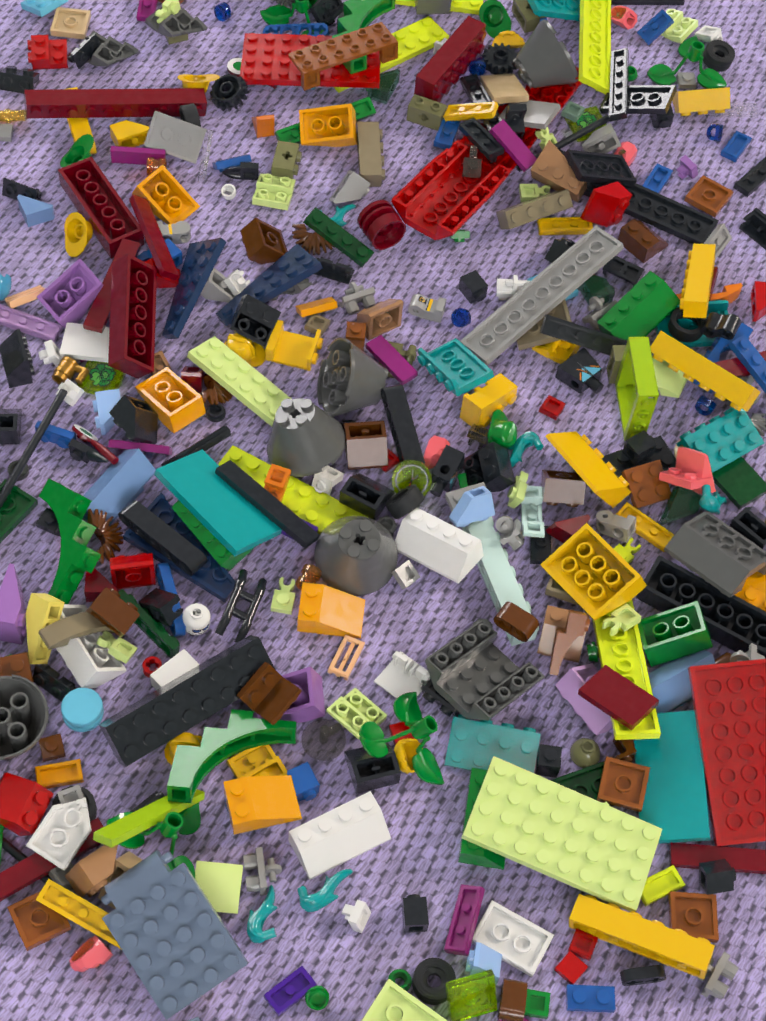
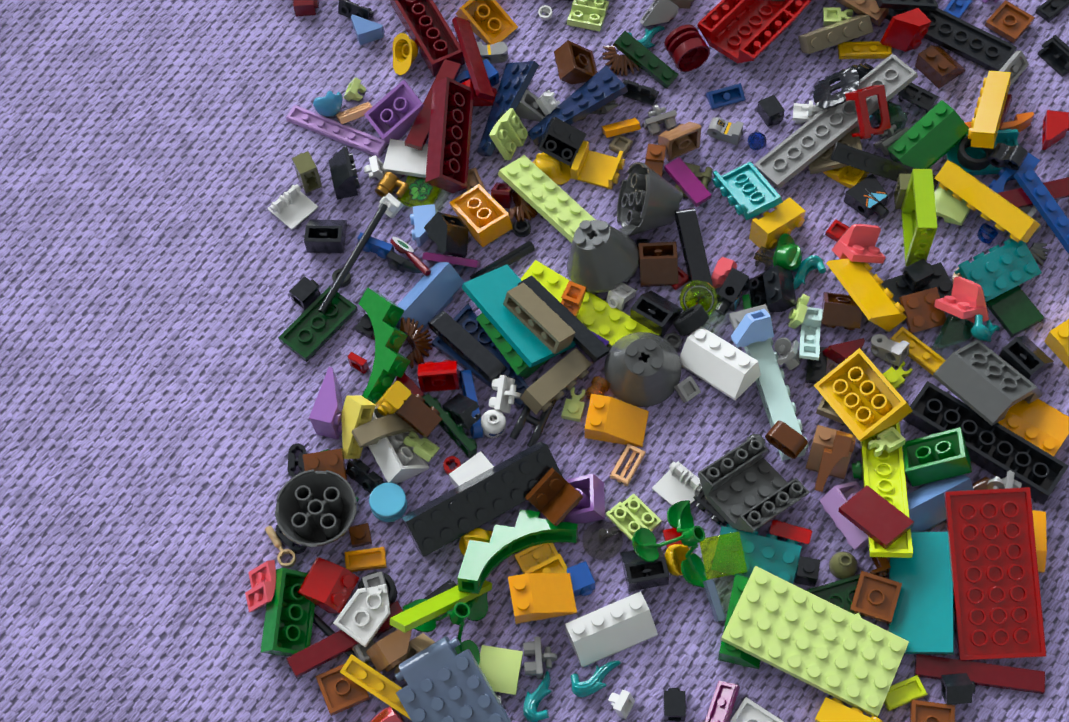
camera: 15 degrees right, 5 degrees up
(22, 273) = (353, 89): none -> yellowish green tile
(41, 560) = (358, 362): none -> red tile
(84, 595) = (393, 399): none -> yellow brick
(196, 314) = (508, 134): none -> yellowish green slope
(208, 588) = (505, 394): none -> white hips
(241, 503) = (539, 318): none -> dark tan brick
(263, 570) = (556, 381): none -> dark tan brick
(424, 273) = (725, 96): none -> blue slope
(450, 796) = (714, 600): none -> sand blue tile
(457, 748) = (723, 555): none -> clear neon green tile
(461, 235) = (762, 59): plate -> none
(527, 719) = (790, 531): none -> red slope
(553, 255) = (823, 90): none -> black piece
(574, 299) = (862, 110): none -> red panel
(577, 417) = (859, 244): none -> coral piece

